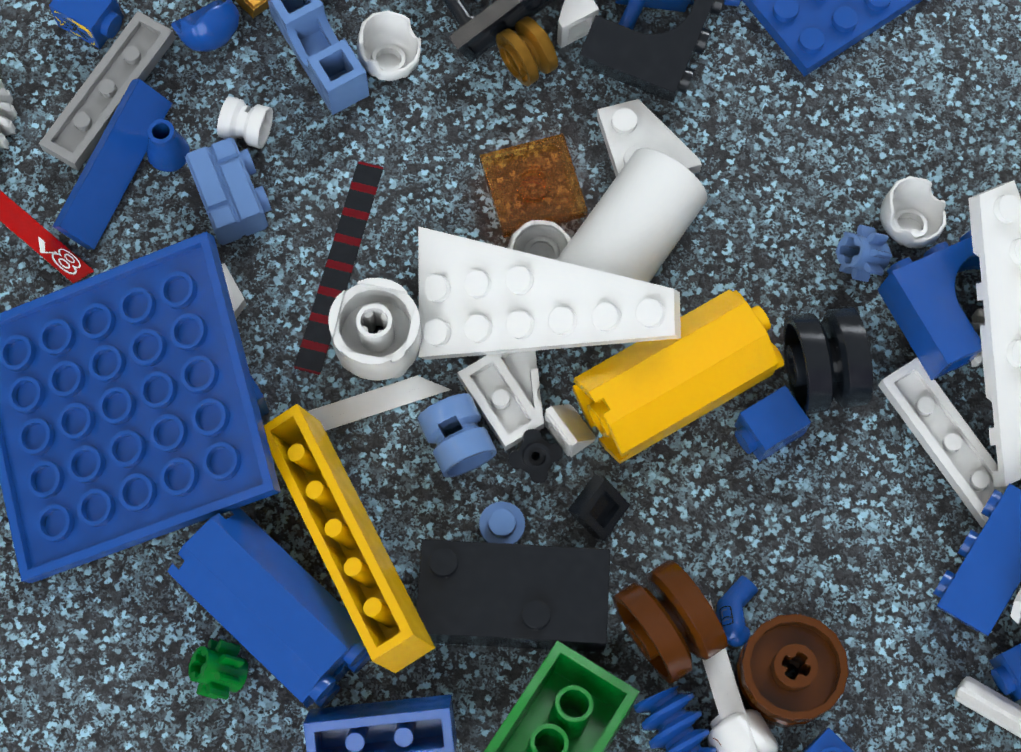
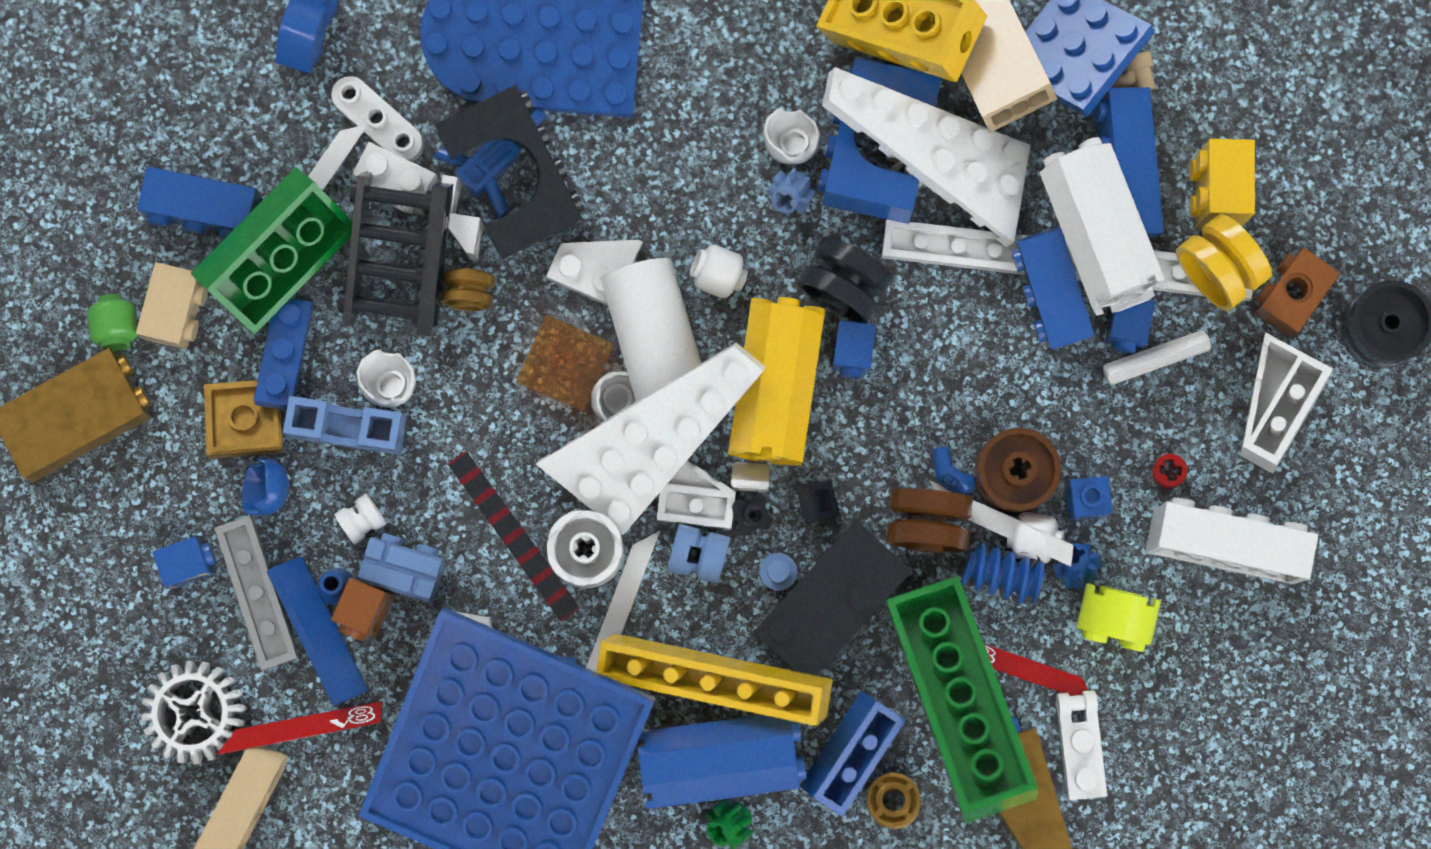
camera: 50 degrees left, 10 degrees up
(159, 179) = (361, 610): none -> dark orange brick
(734, 248) = (718, 271): none -> white head

